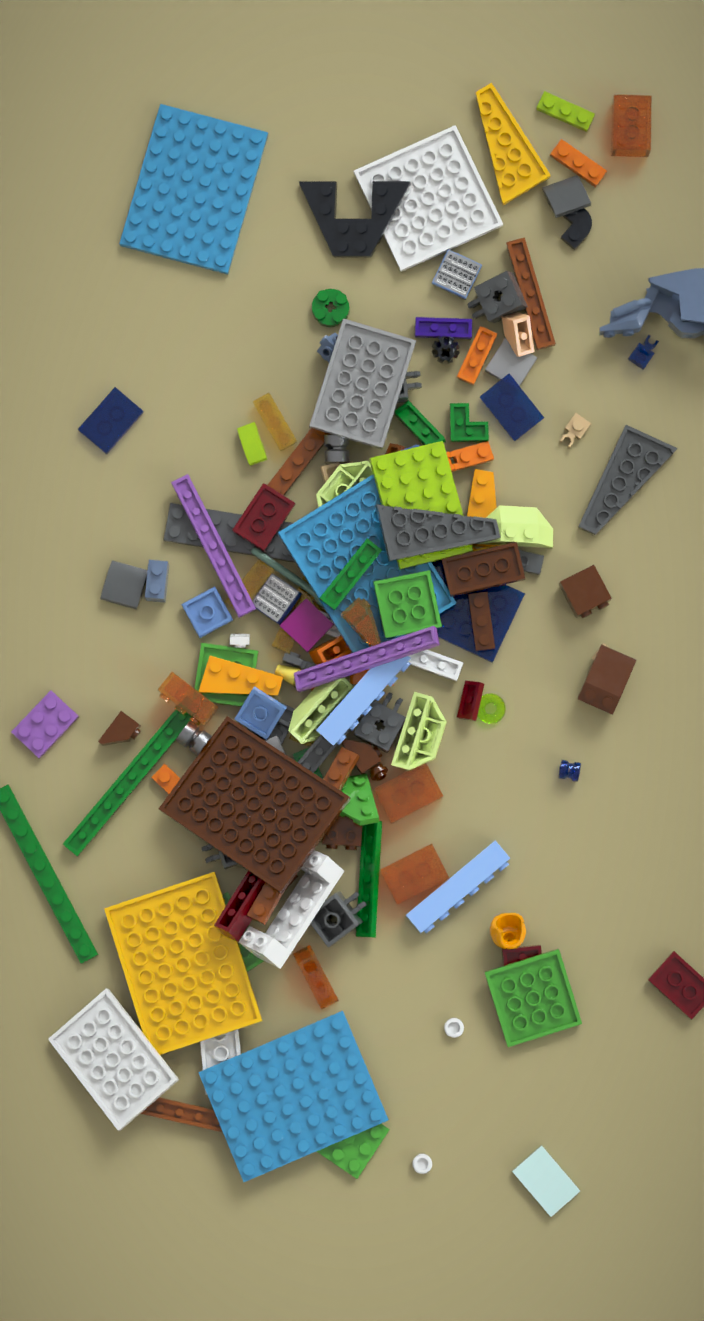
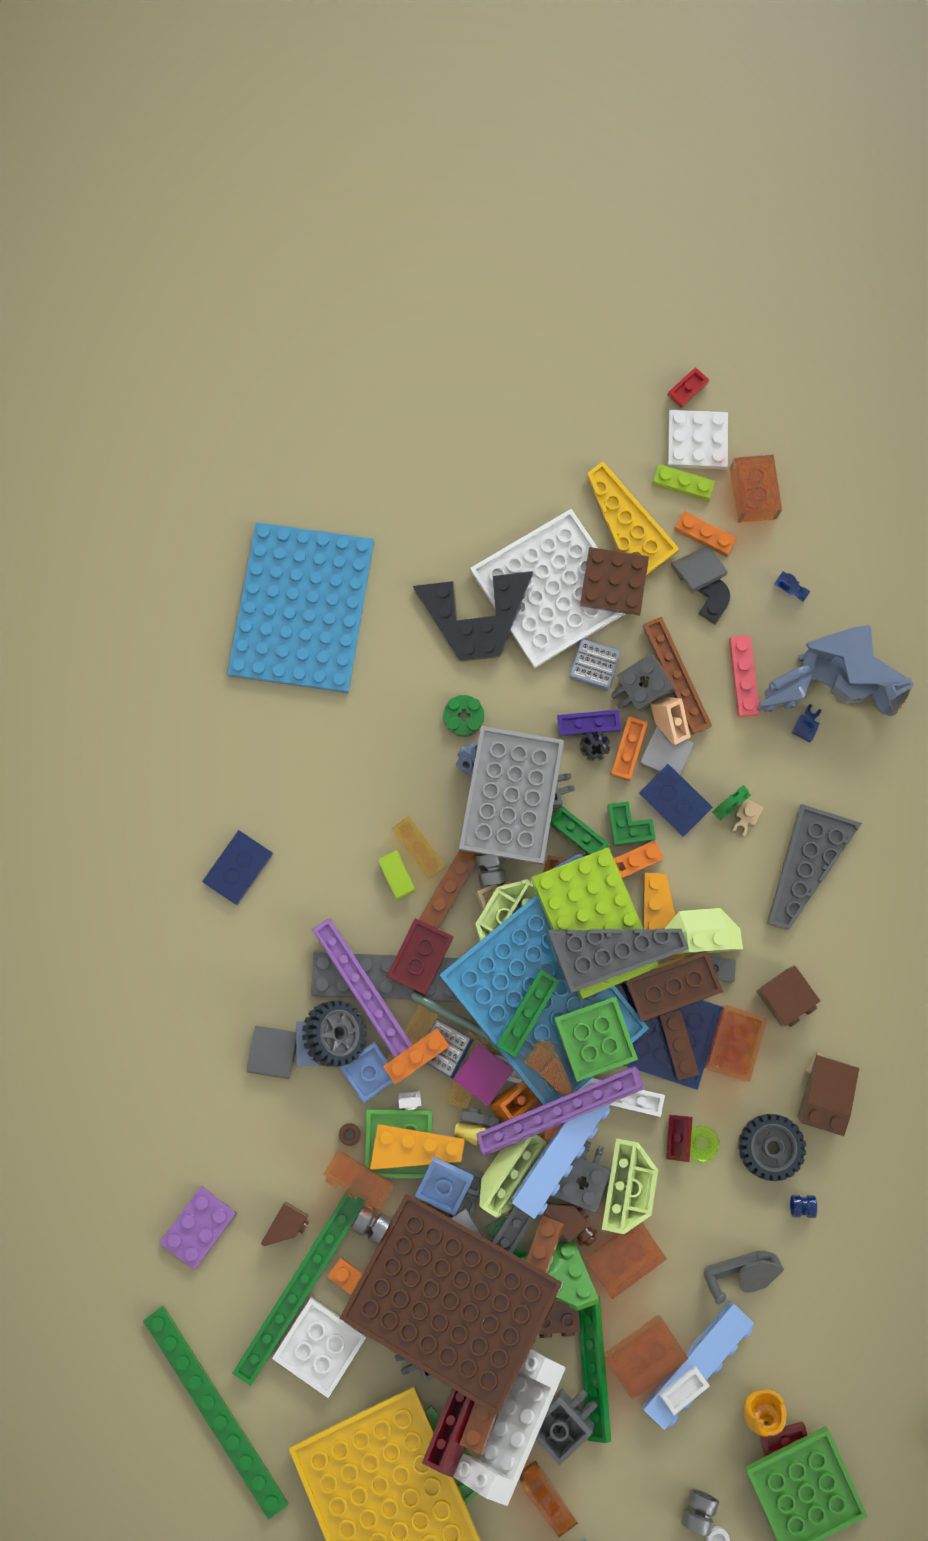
camera: 10 degrees left, 5 degrees down
(138, 833) = (319, 1347): none -> white plate
(169, 568) = (320, 1037): none -> wheel
(184, 656) = (342, 1134): none -> reddish brown plate
(250, 601) = (416, 1056): none -> orange plate
(438, 1008) = (696, 1520): none -> flat silver wheel
(442, 902) = (684, 1390): none -> white tile
(485, 199) = (614, 581): none -> reddish brown plate
(518, 819) = (754, 1269): none -> dark grey piece
(531, 626) = (736, 1043): none -> clear orange brick
(553, 703) = (789, 1144): none -> wheel
(559, 415) = (731, 803): none -> green plate
(583, 19) = (688, 387): none -> red plate
(585, 71) = (698, 439): none -> white plate
(593, 301) = (744, 676): none -> coral plate
(648, 219) = (790, 585): none -> clear blue plate

